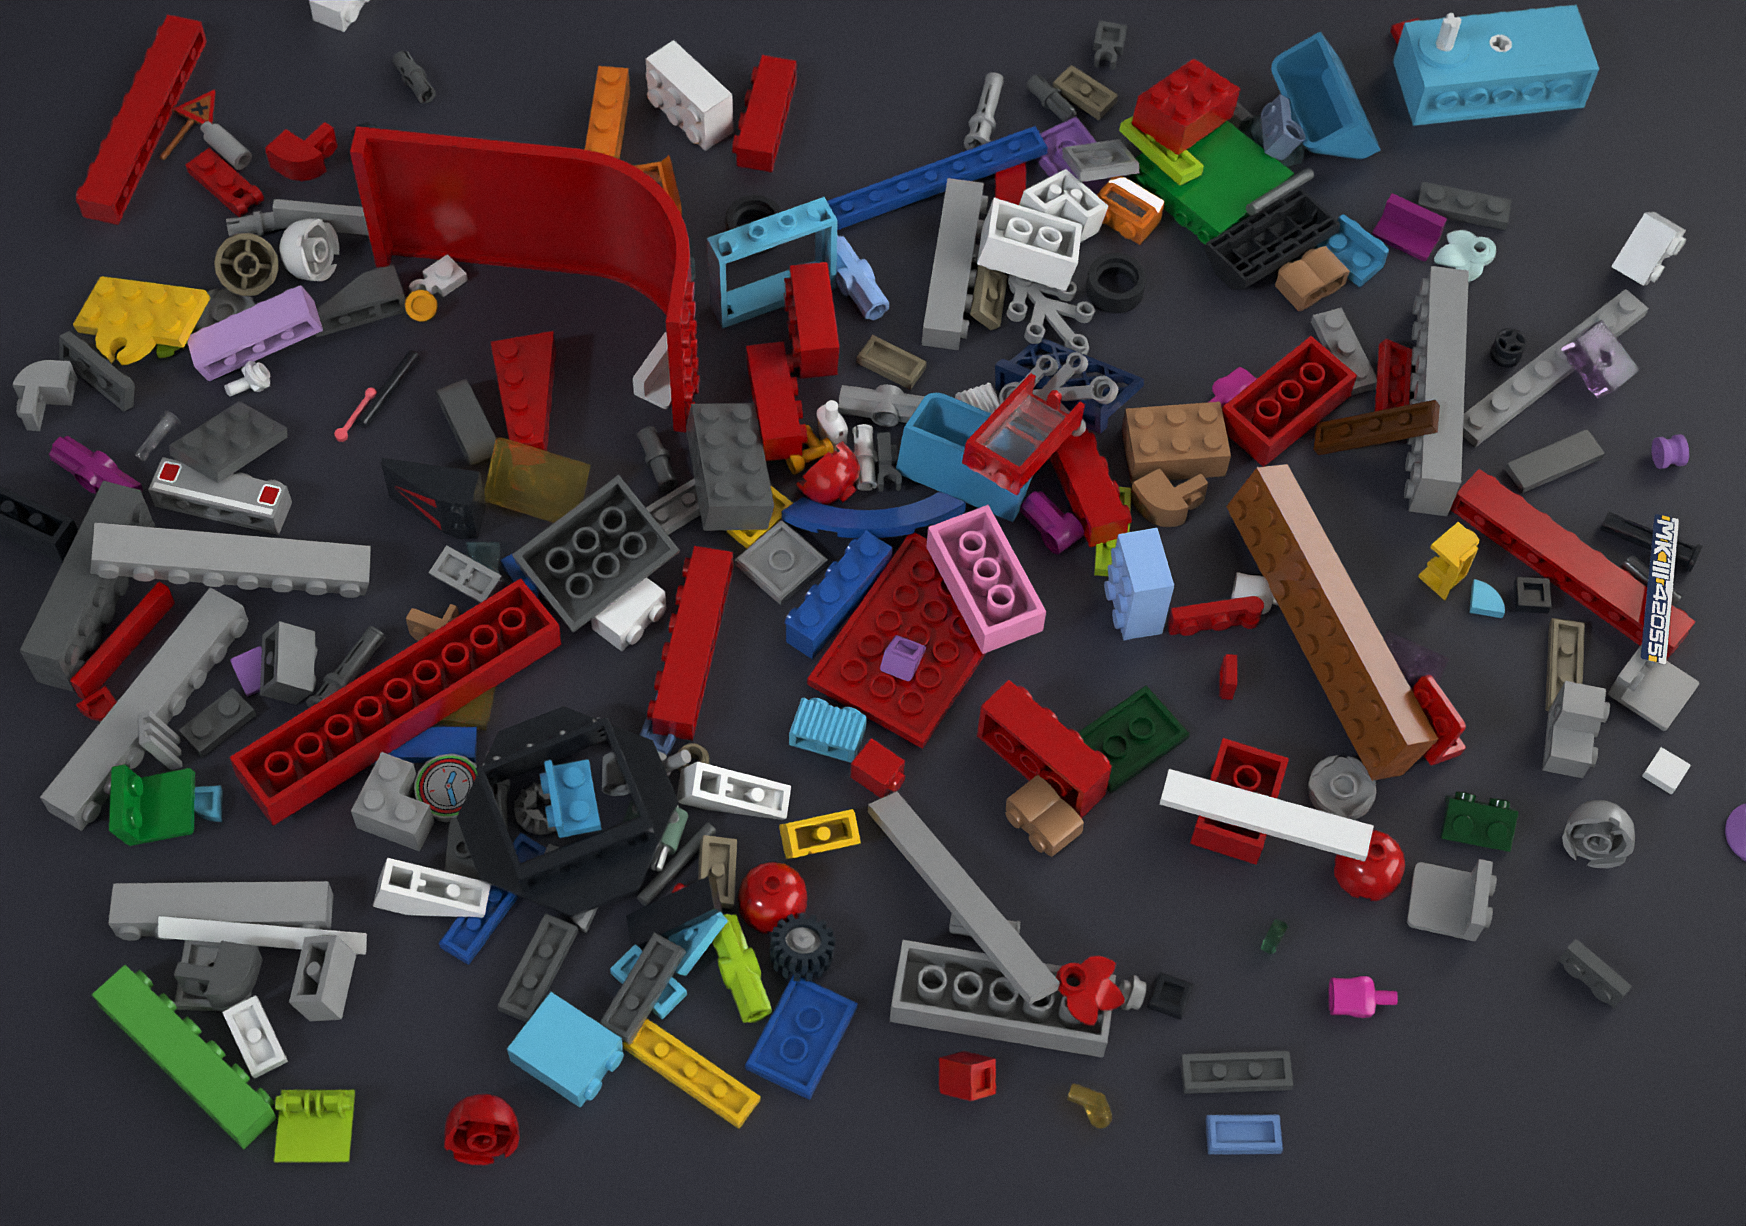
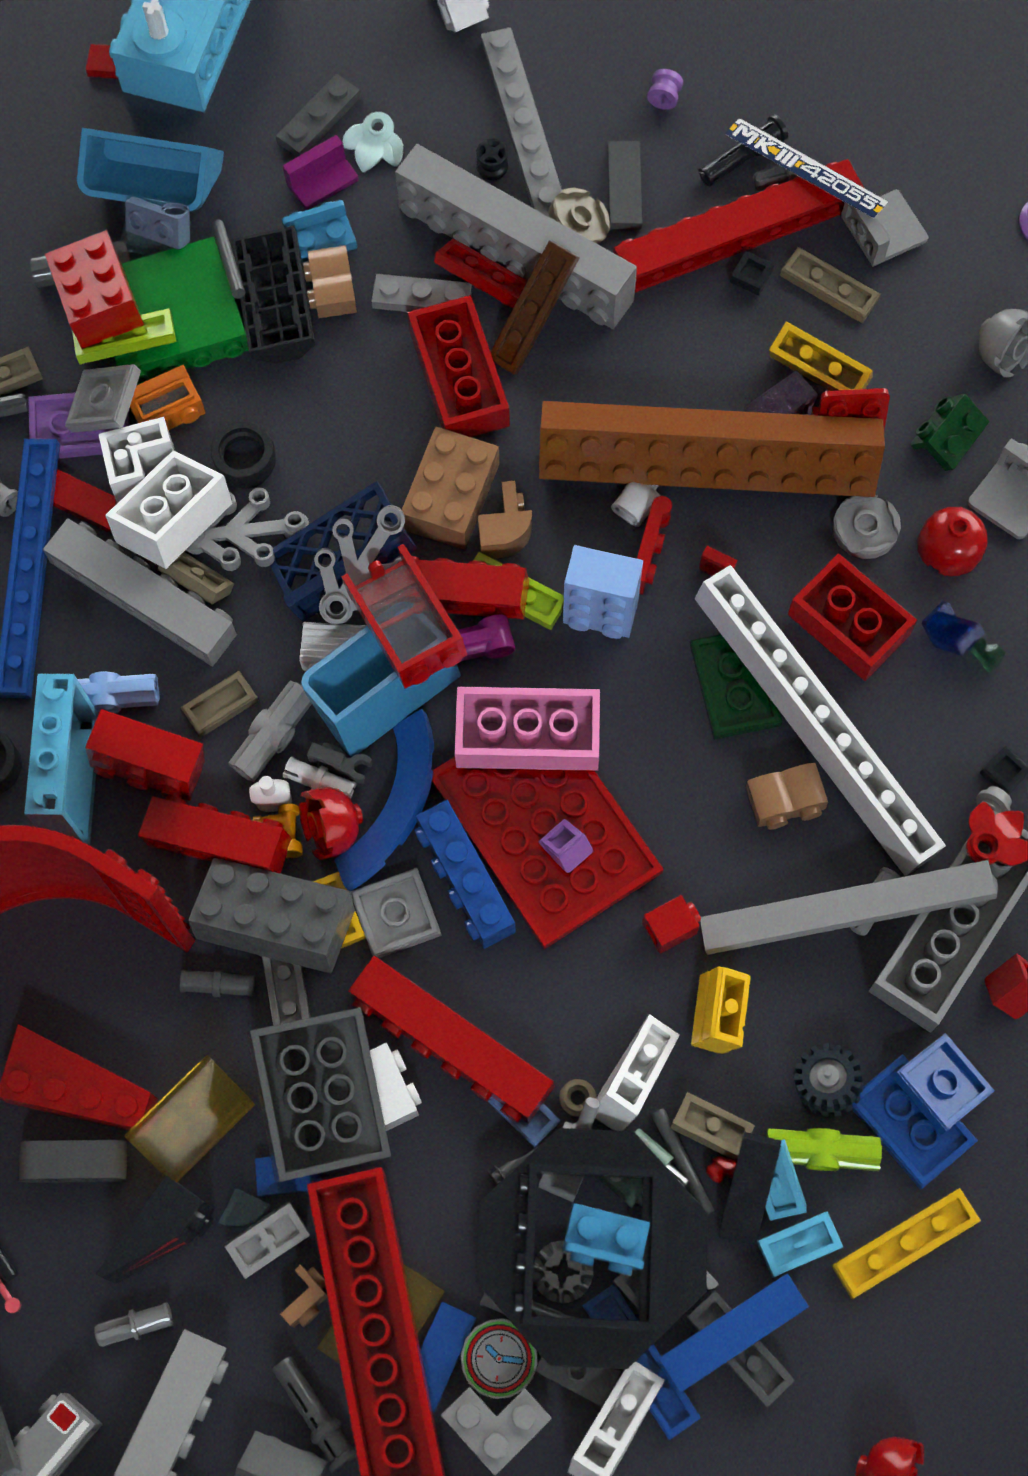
camera: 60 degrees left, 10 degrees up
(362, 519) = (133, 1324): none -> light grey axle
(547, 951) = (733, 1333): none -> blue tile
(566, 1050) = (842, 1356): medium azure brick -> none
(642, 987) = (812, 1254): dark grey tile -> none
(653, 376) = (118, 934): white panel -> none
(771, 894) = (759, 1085): red cylinder -> none
(827, 729) = (606, 951): medium azure brick -> none
(846, 1045) = (943, 1083): none -> tile
(1042, 746) = (727, 761): red brick -> none
(1121, 808) = (819, 721): none -> white brick
(1231, 385) = (417, 410): dark pink piece -> none
(1267, 815) = (889, 601): white tile -> none
(1278, 891) = (951, 632): none -> clear blue bracket
(1456, 554) = (696, 319): yellow window -> none
(1474, 679) = (818, 360): none -> yellow brick
(1485, 600) = (736, 313): medium azure tile -> none
(1493, 435) = (581, 214): none -> dark tan tile
(1571, 729) = (900, 310): light grey brick -> none
(1599, 359) = (549, 91): clear purple brick -> none
(1666, 770) = (965, 260): white tile -> none

